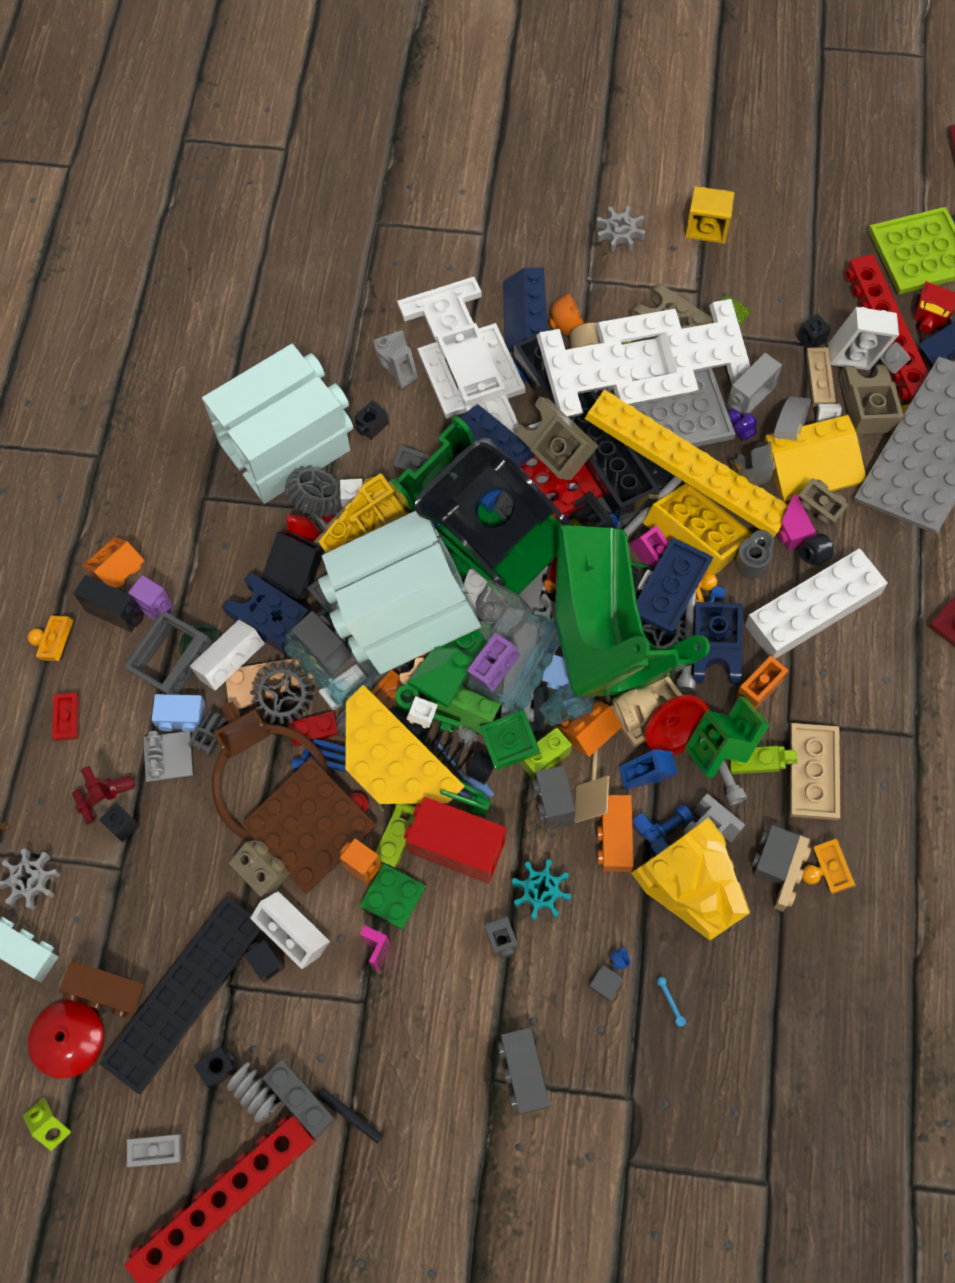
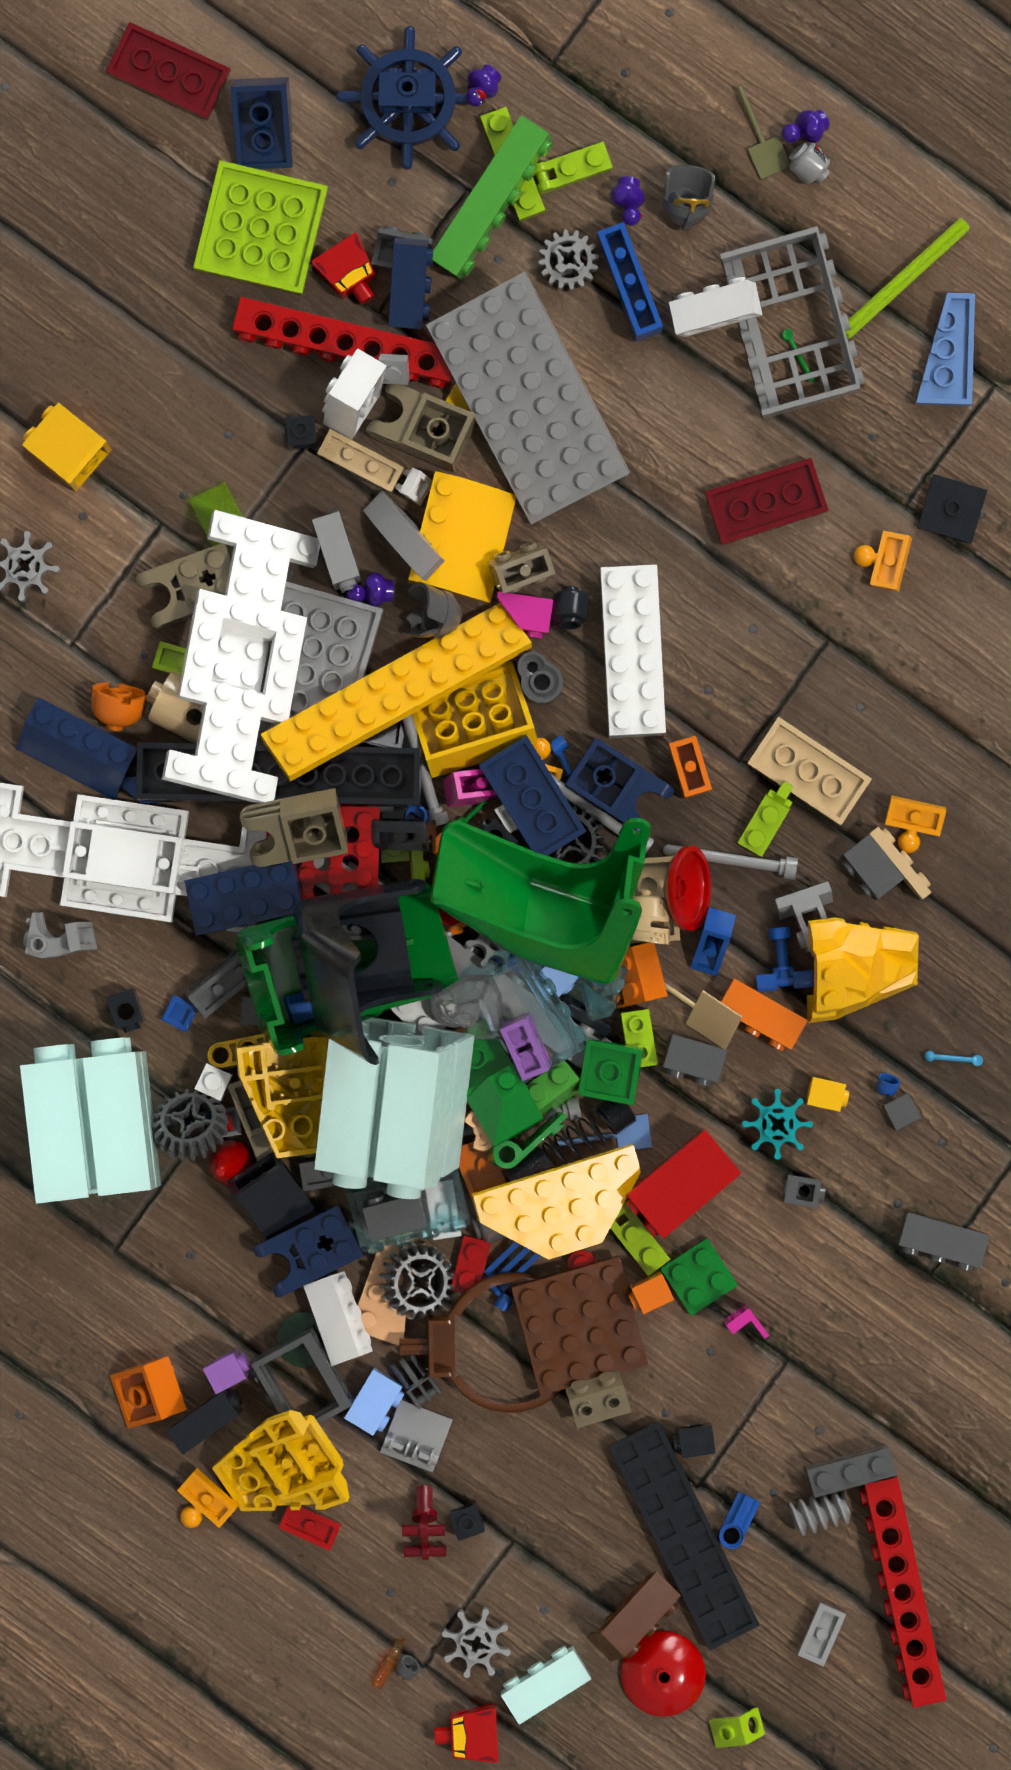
camera: 65 degrees left, 20 degrees up
(100, 670) = (284, 1465): none -> yellow wedge
(204, 1067) = (779, 1548): black brick -> none
(218, 1029) = (738, 1517): none -> blue piece
(289, 929) = (680, 1399): white brick -> none
(350, 1115) = (889, 1429): black bar -> none
(386, 455) = (179, 1013): none -> blue tile
(422, 712) = (535, 1149): white tile -> none
(477, 804) = (651, 1141): green plant -> none
(585, 915) = (827, 1094): none -> yellow brick
(726, 736) = (729, 844): green bracket -> none

